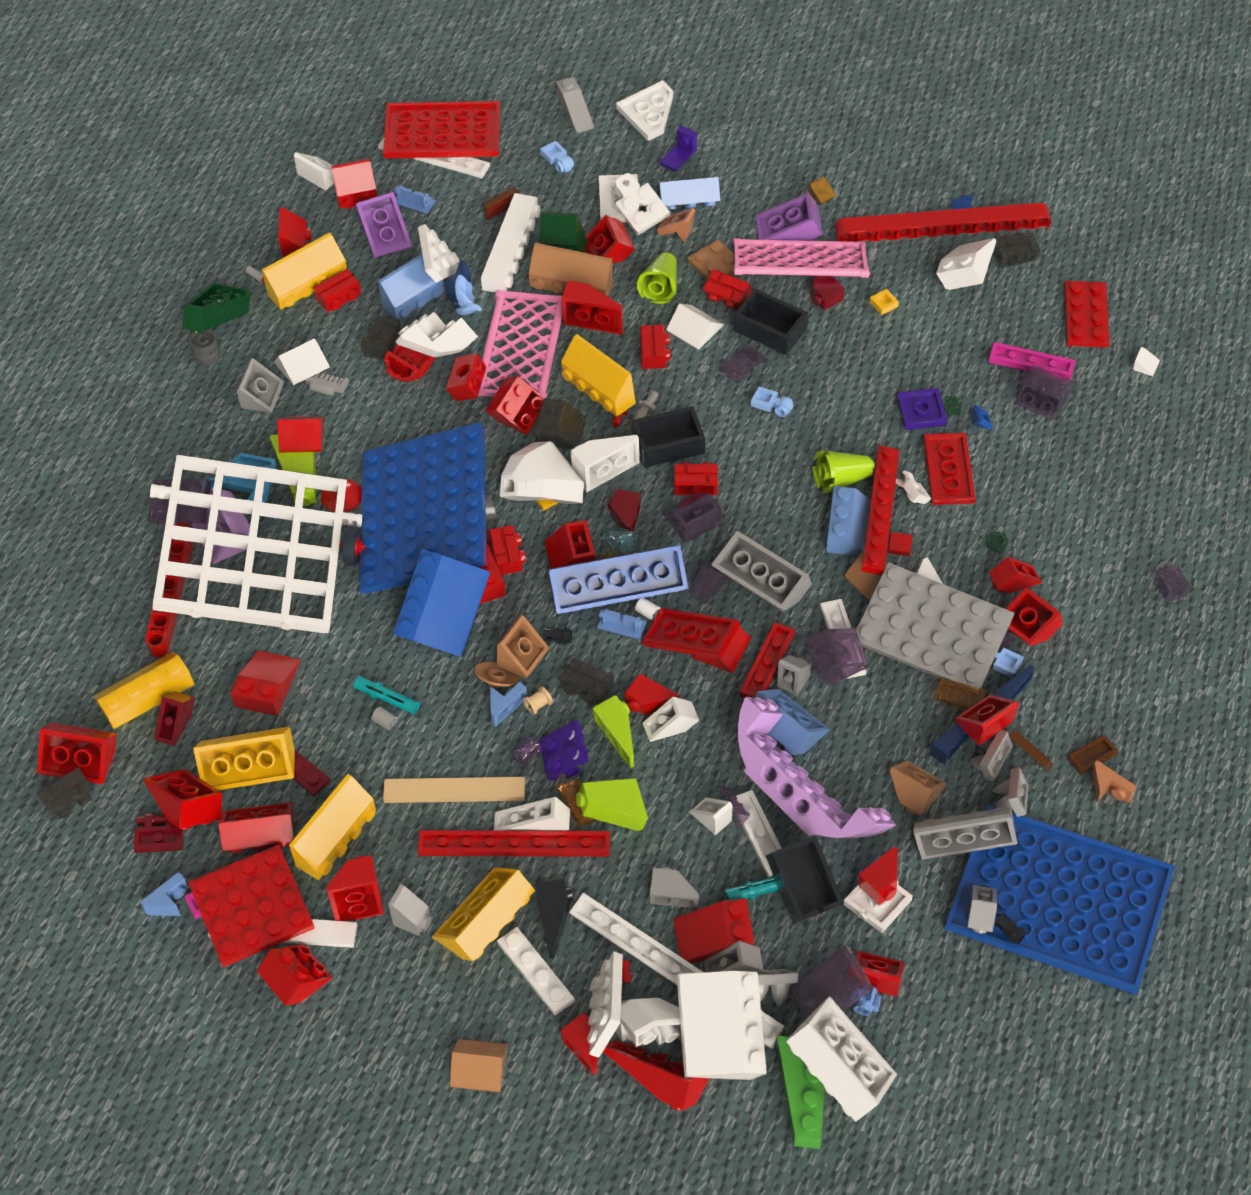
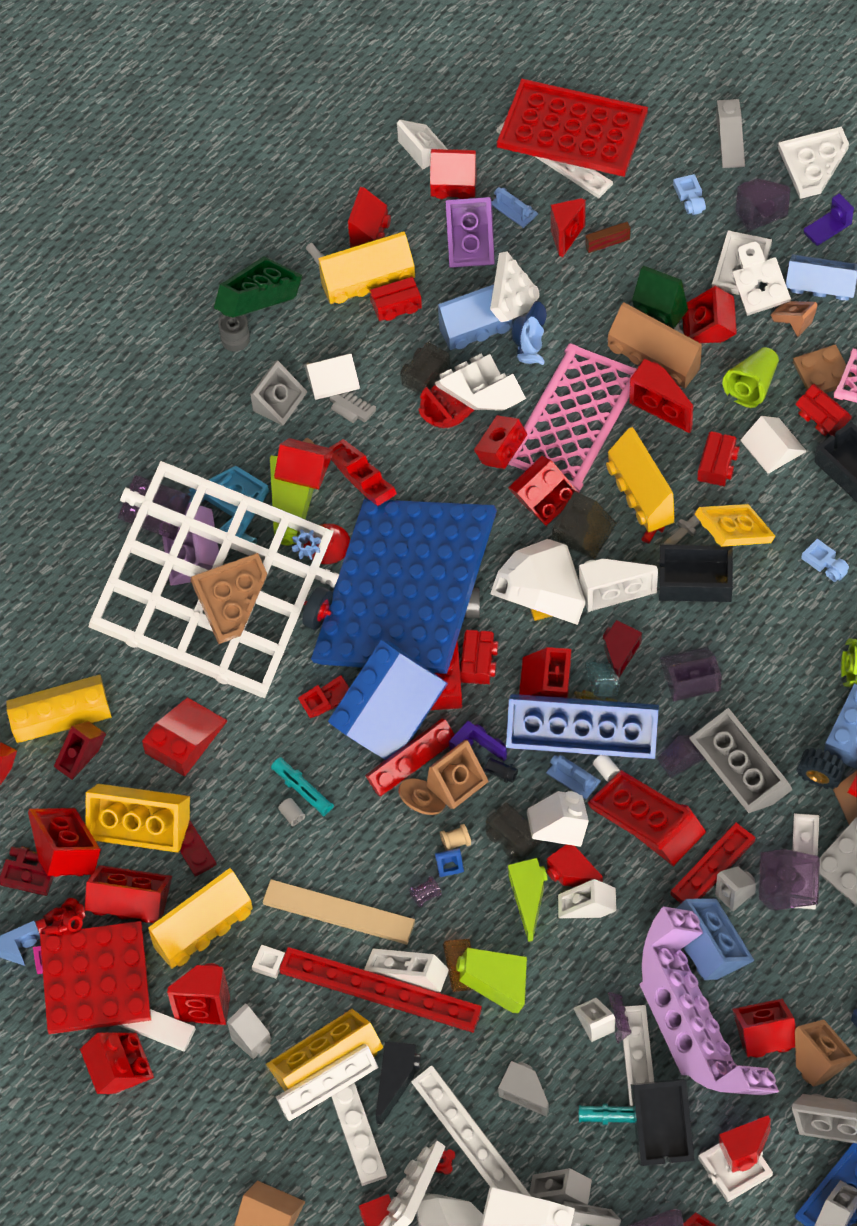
camera: 20 degrees right, 5 degrees up
(159, 637) = (114, 613): red beam -> none
(204, 863) = (62, 918): none -> red piece
(272, 550) = (230, 595): none -> medium nougat plate
(331, 497) = (304, 538): none -> medium blue gear
(354, 432) = (361, 474): none -> red slope
(380, 620) = (323, 699): none -> red slope
(405, 848) = (268, 961): none -> white plate
(463, 199) = (567, 223): none -> red slope
(475, 645) = (410, 757): none -> red plate
(494, 933) = (326, 1082): none -> white tile
(503, 705) = (416, 834): medium blue slope -> none
(510, 243) = (601, 289): white brick -> none
(532, 613) = (477, 733): none -> dark purple bracket
(539, 716) = (446, 857): none -> blue slope
(564, 751) = (463, 903): dark purple piece -> none
(619, 147) = (761, 203): none -> clear purple slope
(625, 657) = (559, 818): none -> white slope
(687, 391) = (734, 525): none -> yellow plate
(696, 478) = (709, 630): red brick -> none
(713, 929) = (551, 1146): red slope -> none
(740, 364) = (809, 504): clear purple slope -> none
(830, 559) = (821, 768): none -> black wheel
(862, 779) = (765, 1028): none -> red slope

